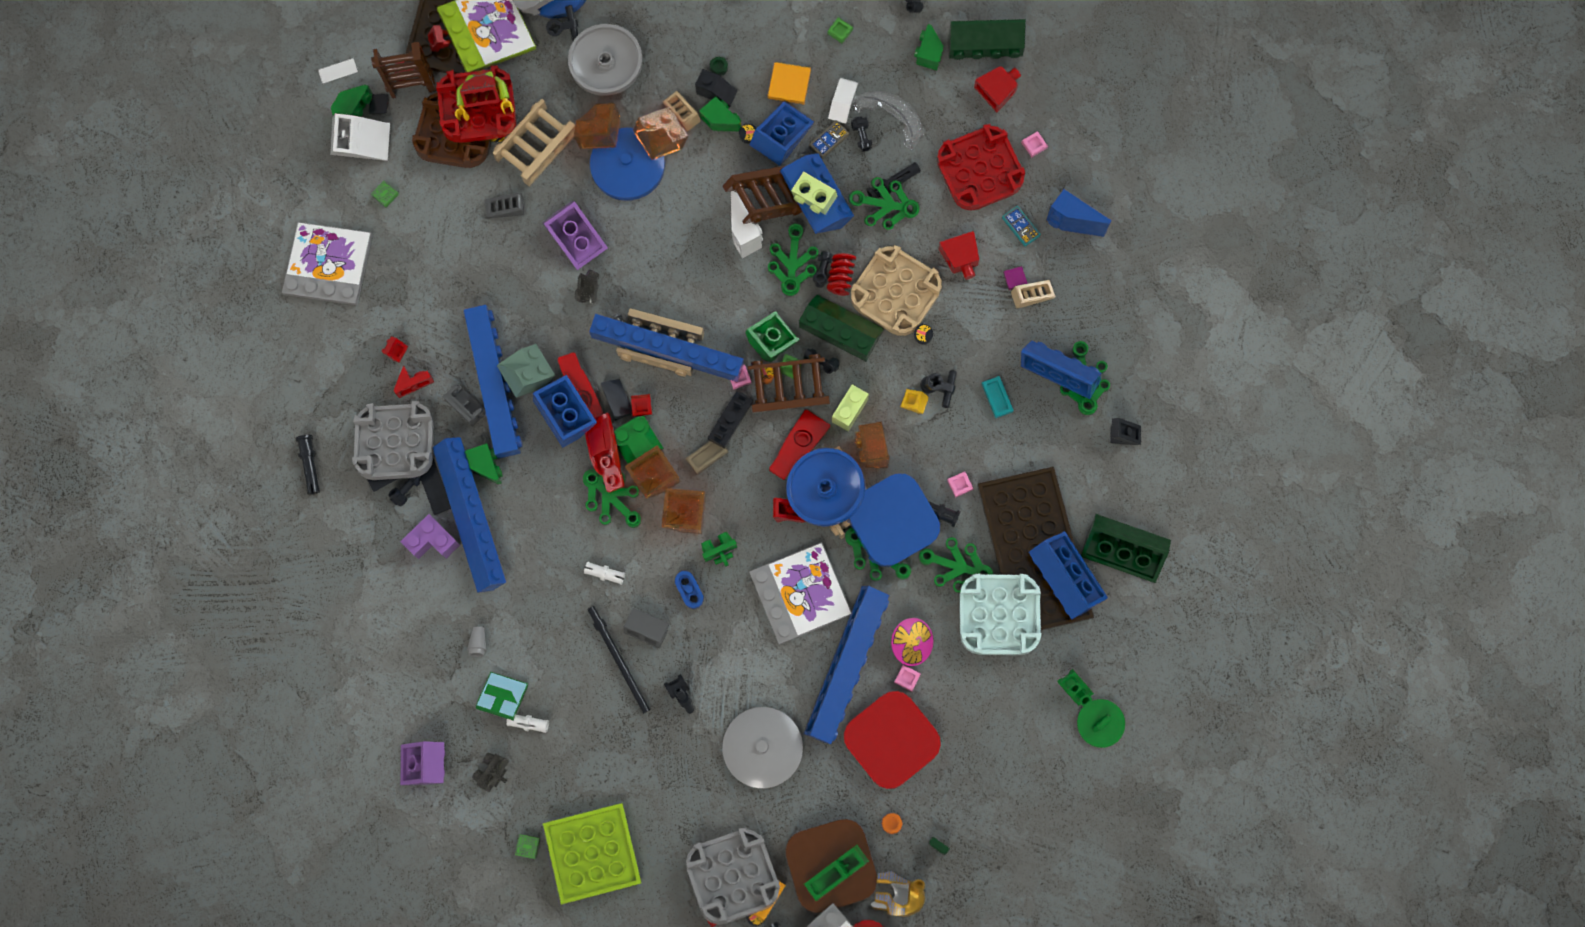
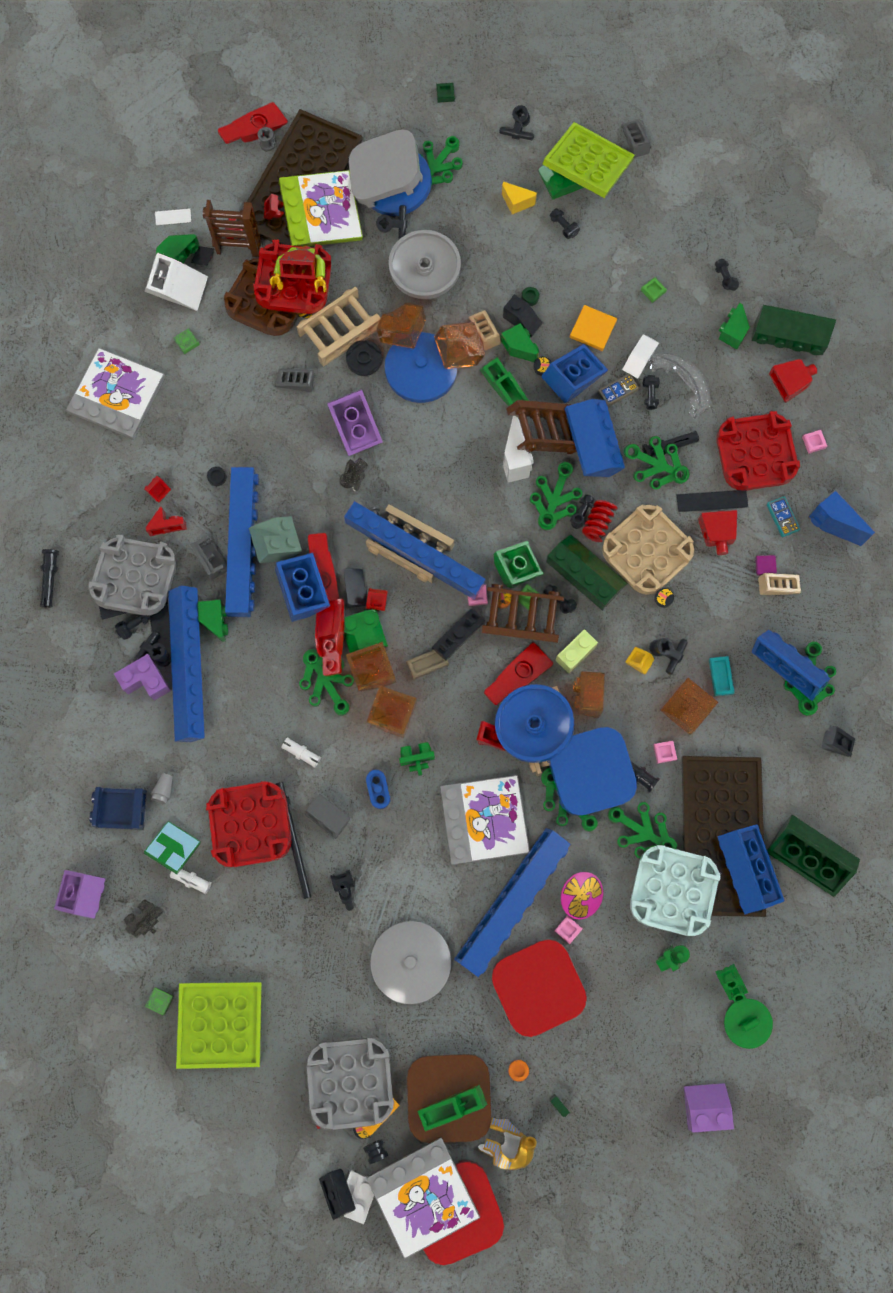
camera: 10 degrees right, 0 degrees up
(437, 509) = (156, 652): none -> black piece
(438, 672) = (118, 808): none -> dark blue panel
(450, 322) = (216, 476): none -> black tile
(567, 168) = (364, 358): none -> black tile
(571, 655) = (249, 824): none -> red tile
(713, 159) = (503, 382): none -> green slope
(816, 190) = (596, 434): yellowish green brick -> none
(948, 227) = (712, 500): none -> black sticker
(972, 434) = (689, 706): none -> clear orange slope
(1014, 678) = (673, 958): none -> green hips
(1080, 811) = (708, 1108): none -> medium lavender slope

